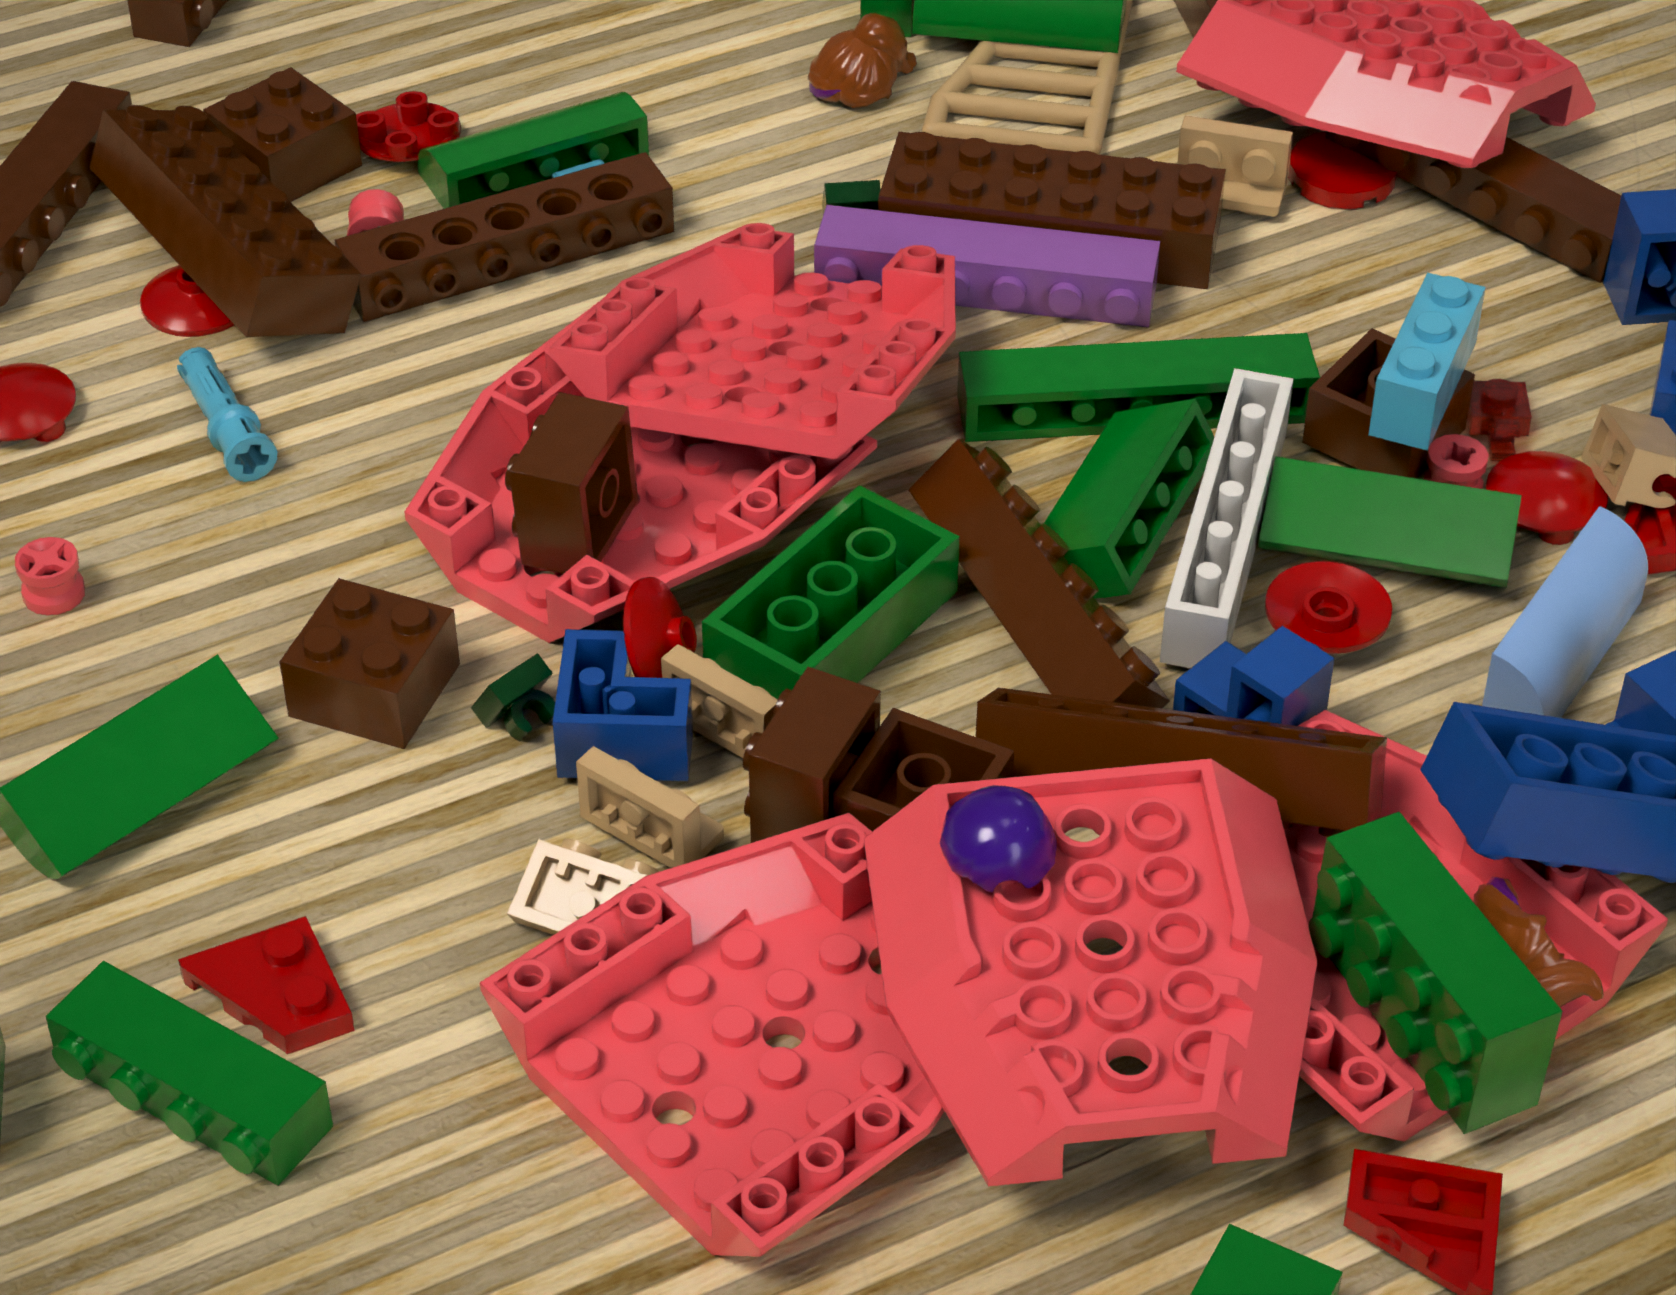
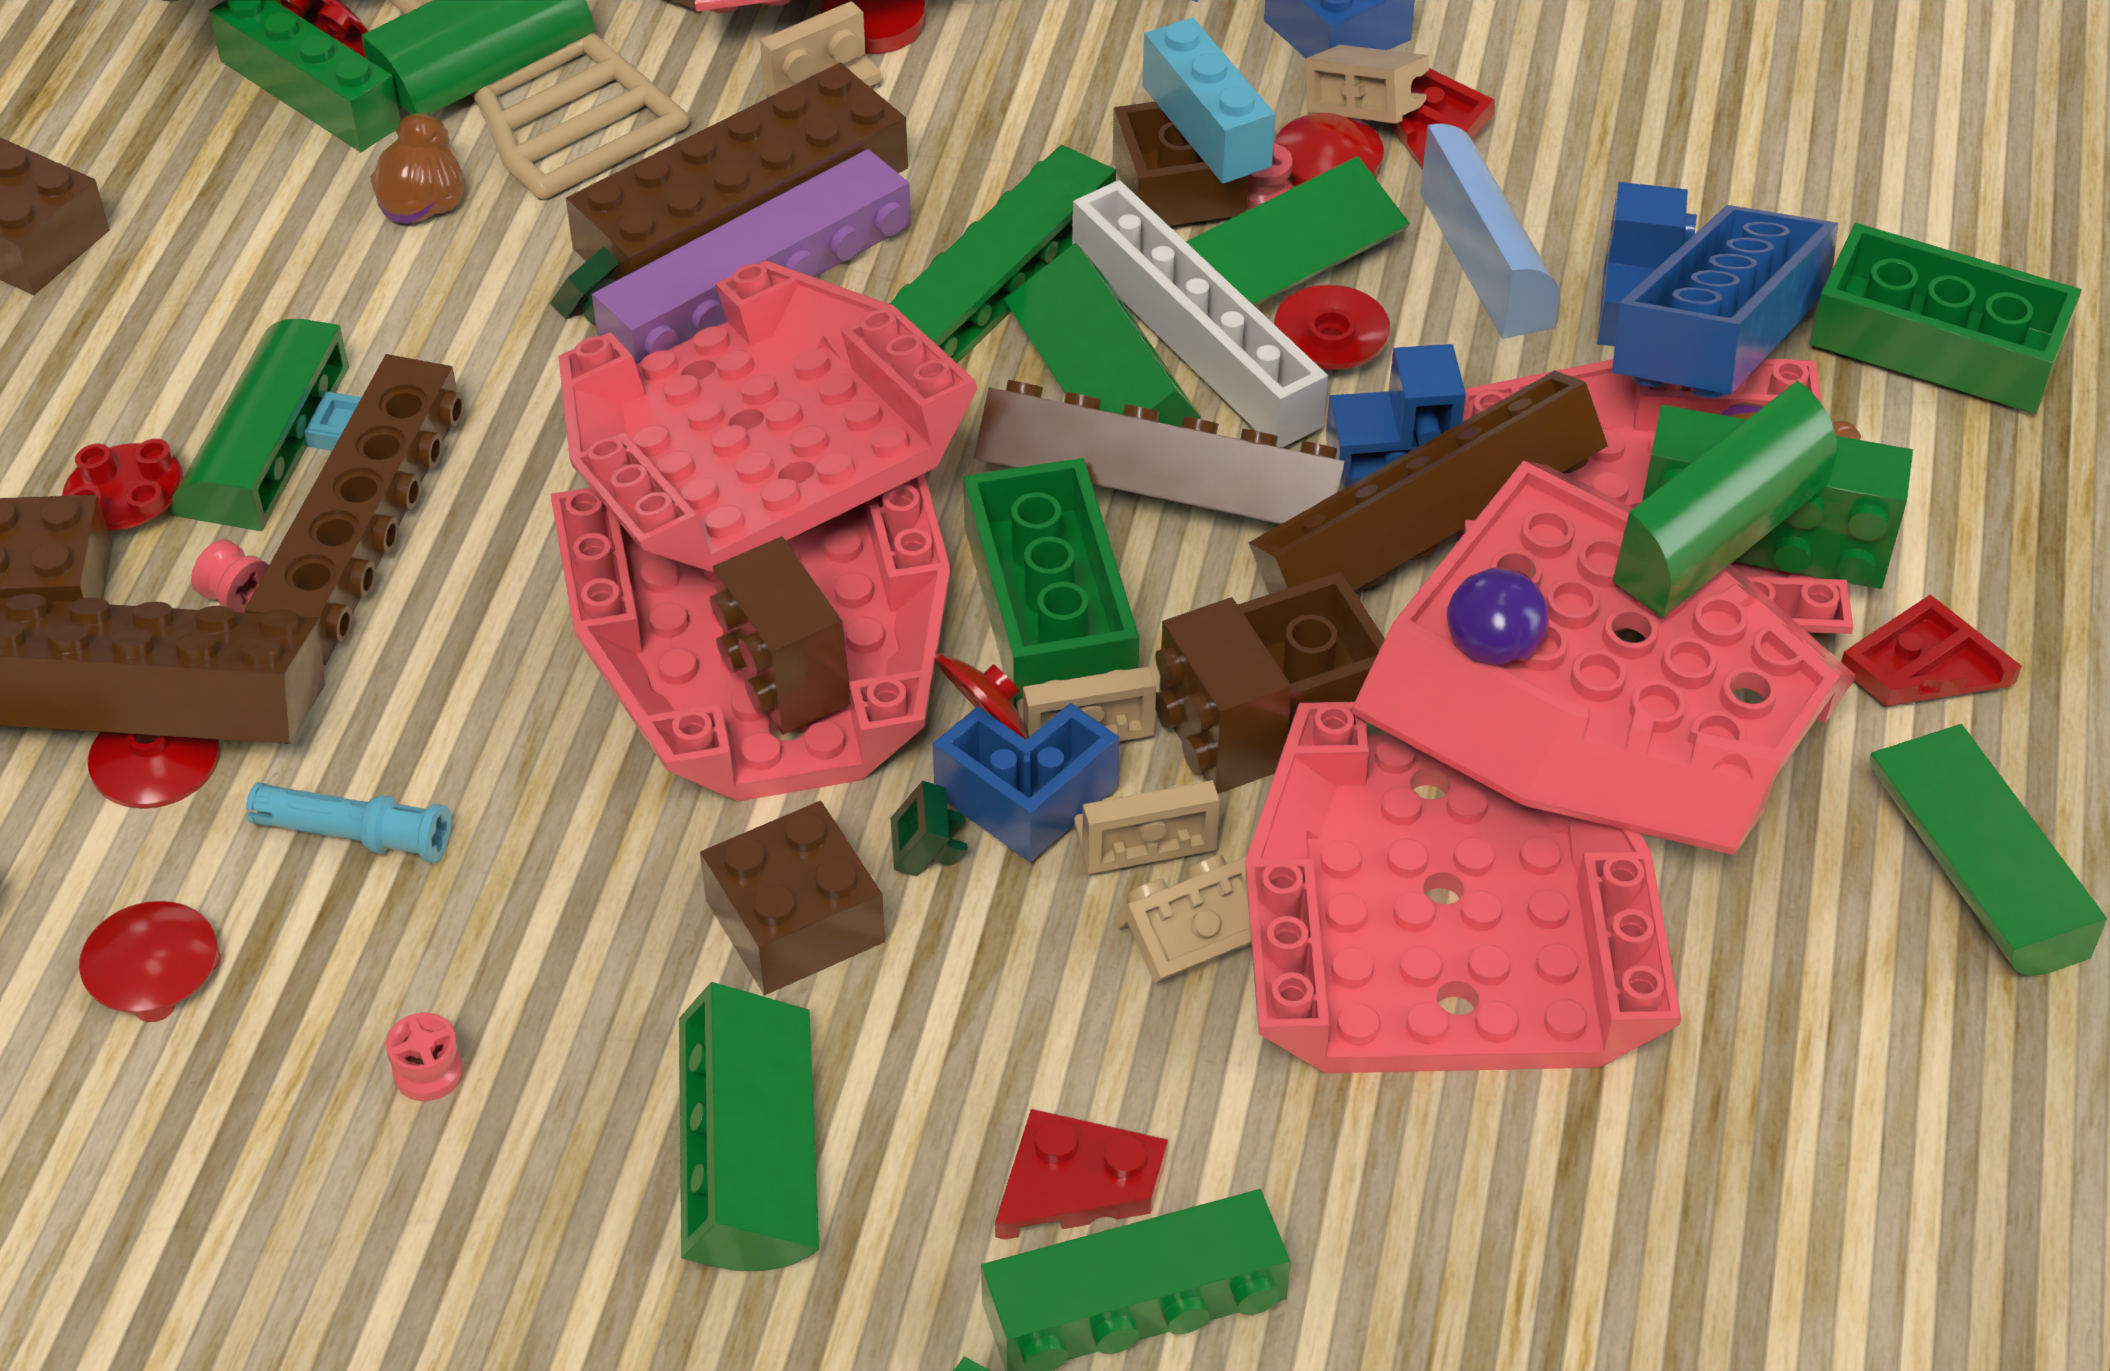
camera: 50 degrees left, 5 degrees up
(1294, 896) = (1726, 500): none -> green brick

